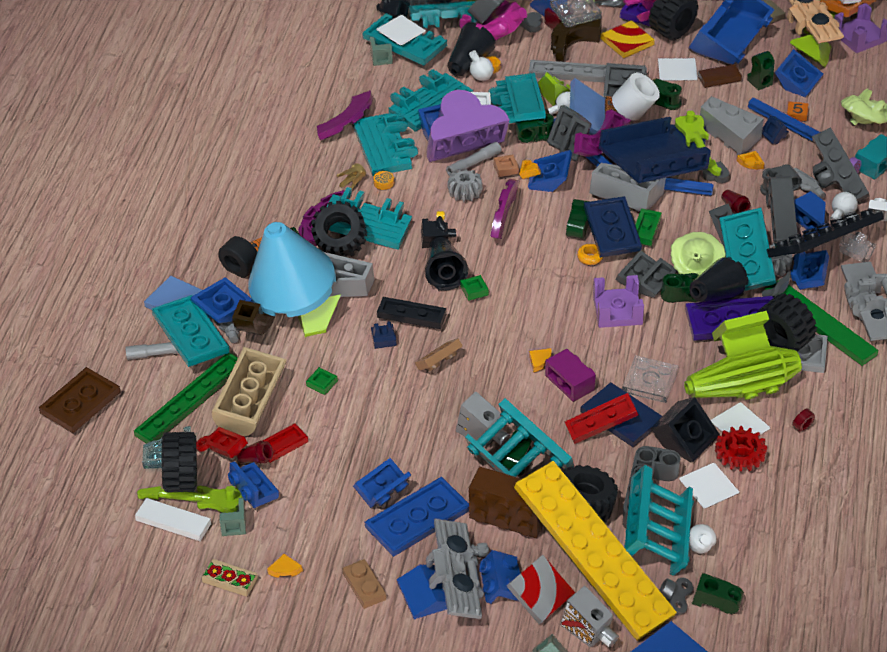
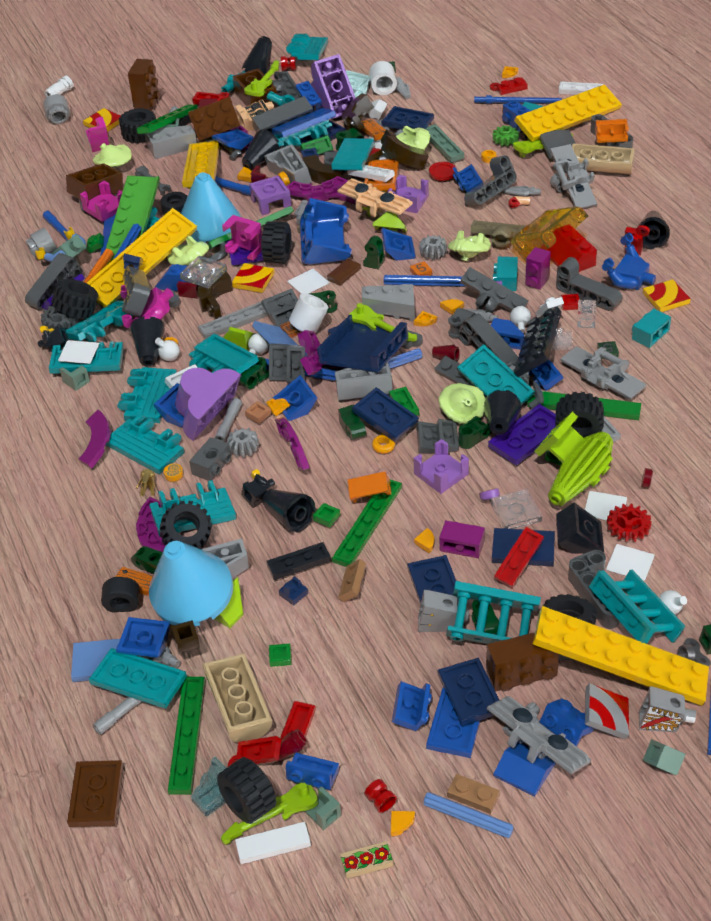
camera: 35 degrees left, 0 degrees up
(286, 536) = (382, 798): none -> red wheel
(342, 596) = (468, 814): none -> medium blue axle
(423, 184) = (210, 459): none -> dark grey brick
(441, 497) = (468, 690): none -> dark blue tile
(506, 314) = (365, 526): none -> green tile
(517, 389) = (432, 575): none -> dark blue tile
(533, 281) = (369, 485): none -> orange hinge
(637, 350) = (488, 494): none -> medium lavender tile
(774, 130) = (421, 289): dark blue tile -> none
(792, 159) = (451, 305): none -> light orange tile
(829, 93) = (433, 247): none -> light grey gear

